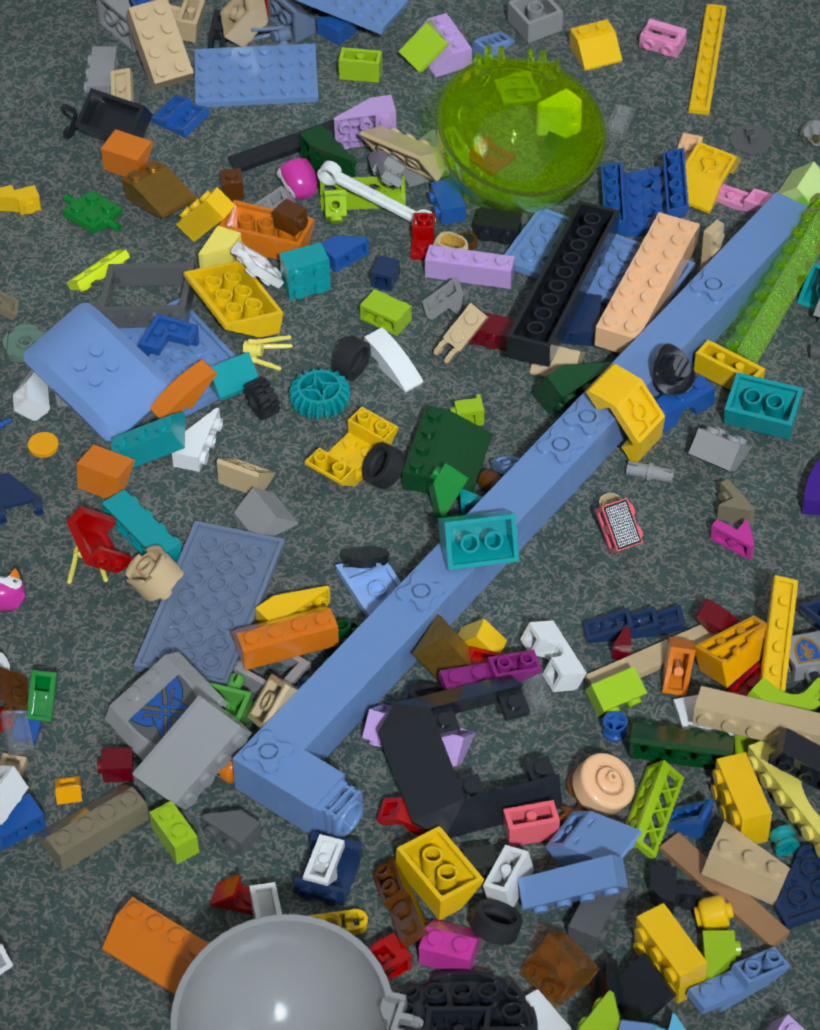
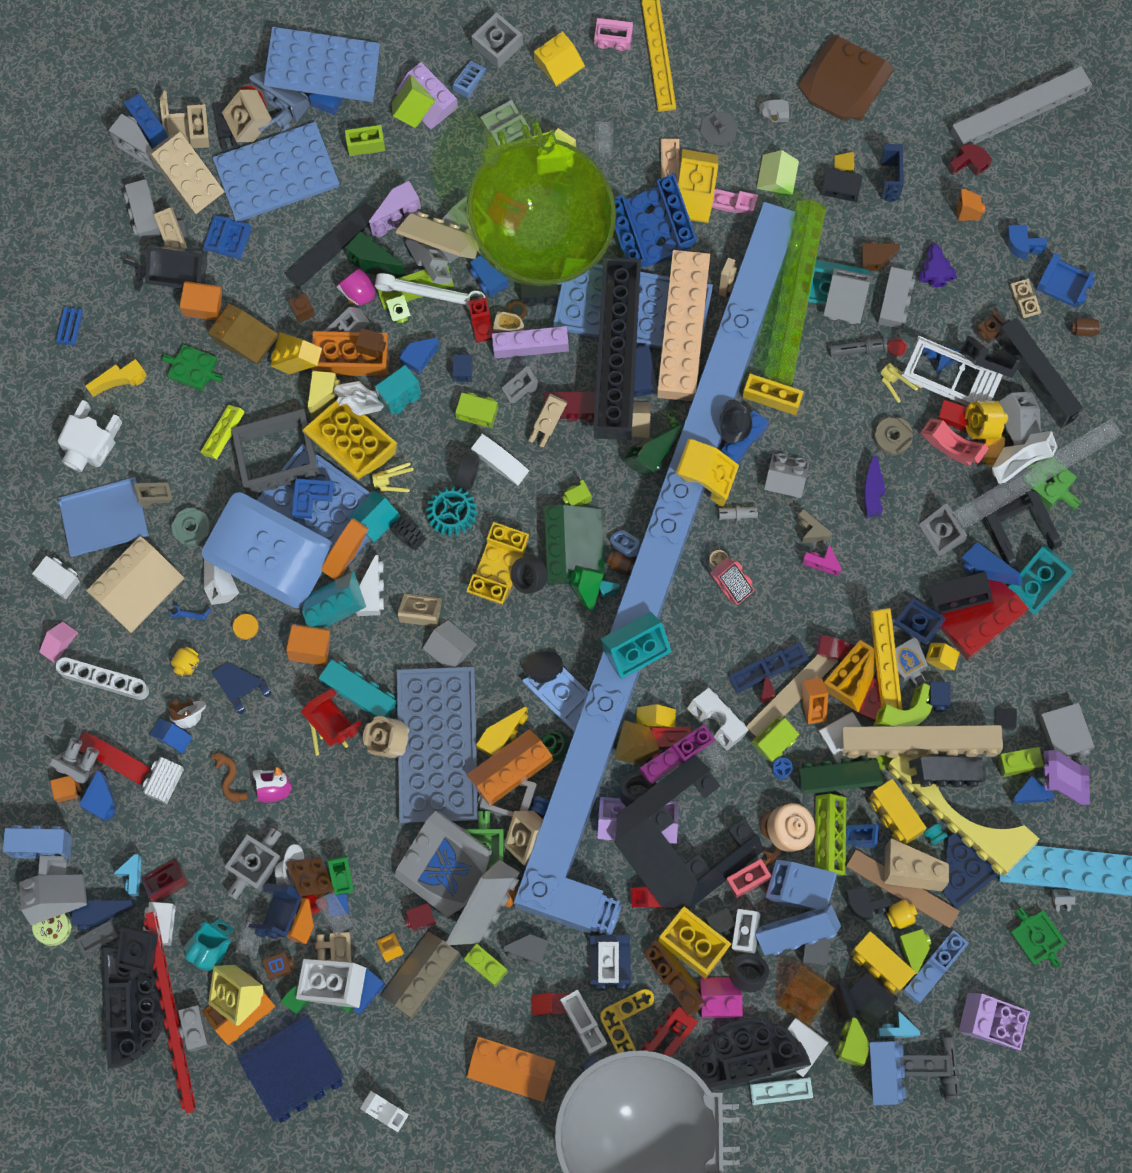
camera: 15 degrees left, 25 degrees up
(763, 405) = (811, 425): teal slope -> none

